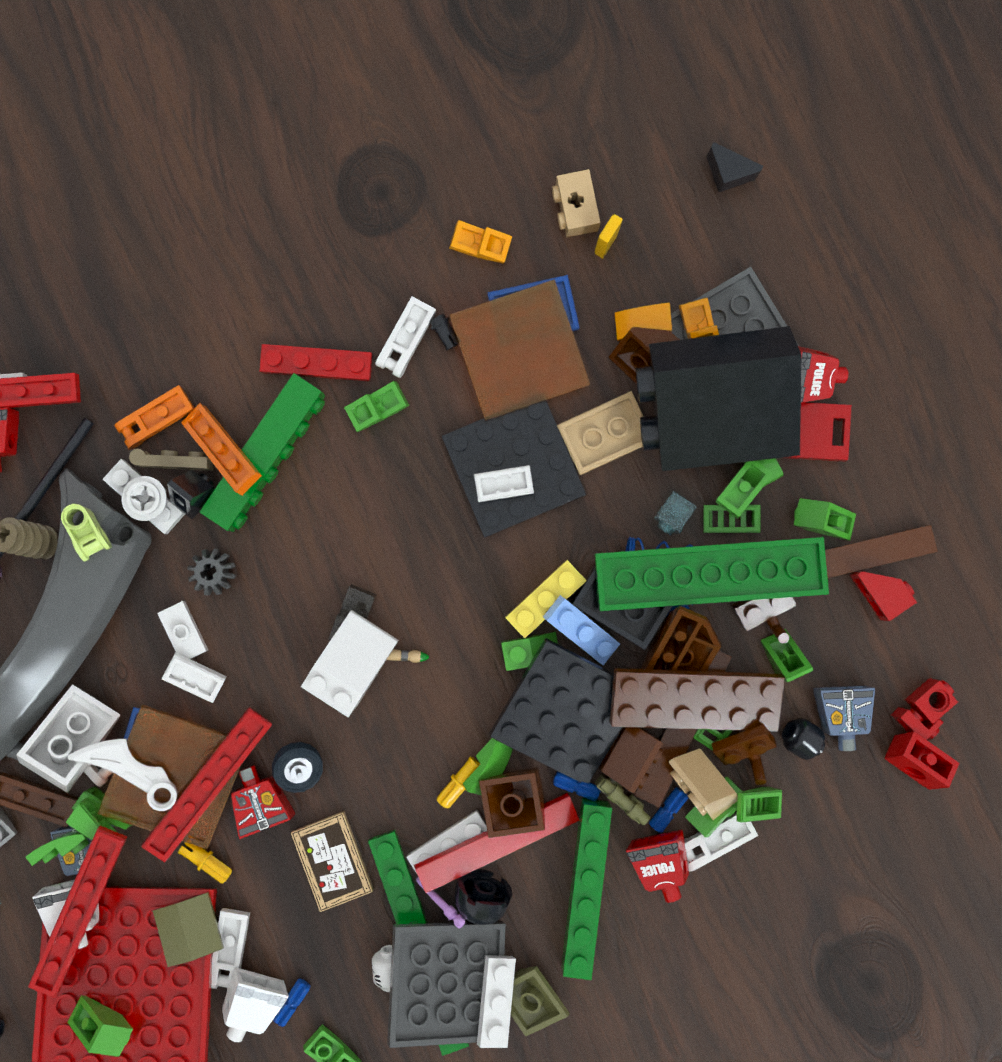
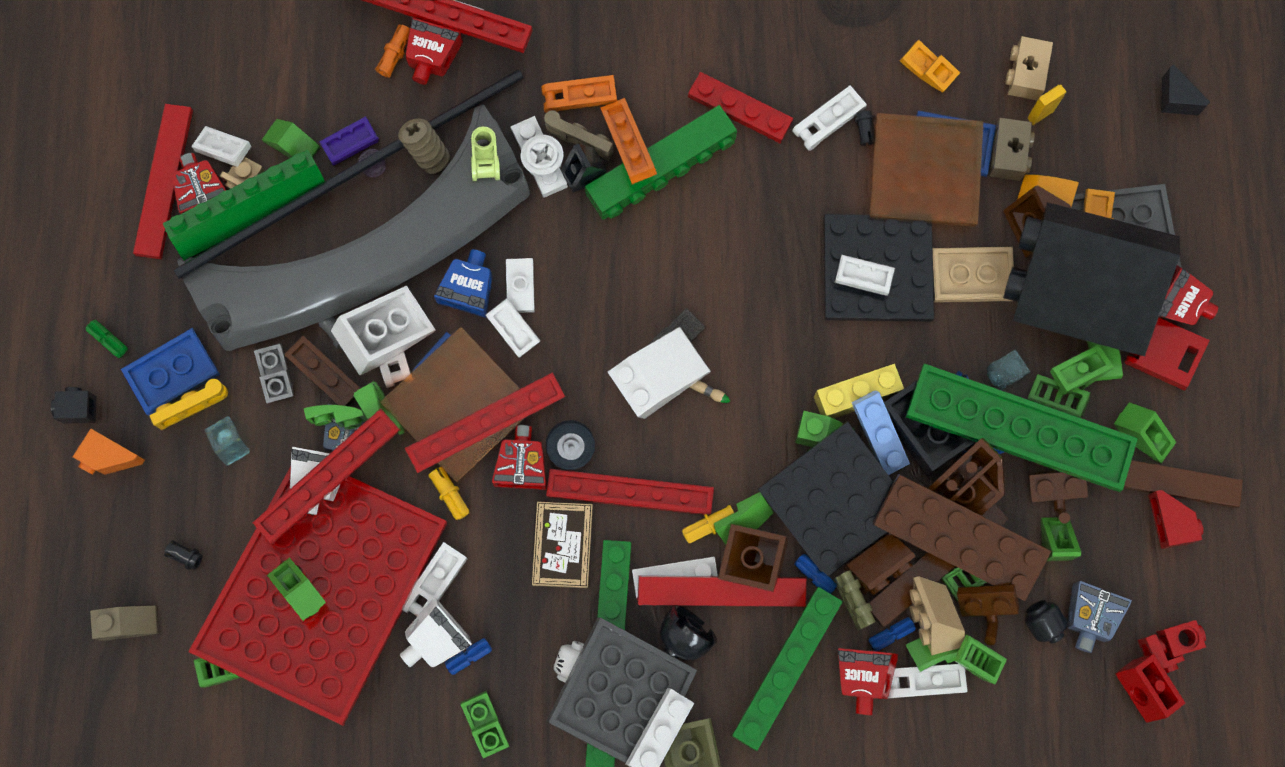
camera: 25 degrees right, 10 degrees down
(117, 758) = (420, 360): white piece -> none
(131, 655) = (466, 285): none -> blue torso
(188, 929) = (409, 543): olive slope -> none
(204, 565) = (562, 238): dark grey gear -> none
(373, 783) = (630, 492): none -> red tile
(376, 406) = (777, 166): bright green slope -> none
(449, 911) = (651, 632): lavender piece -> none
(592, 310) = (1004, 162): none -> dark tan brick

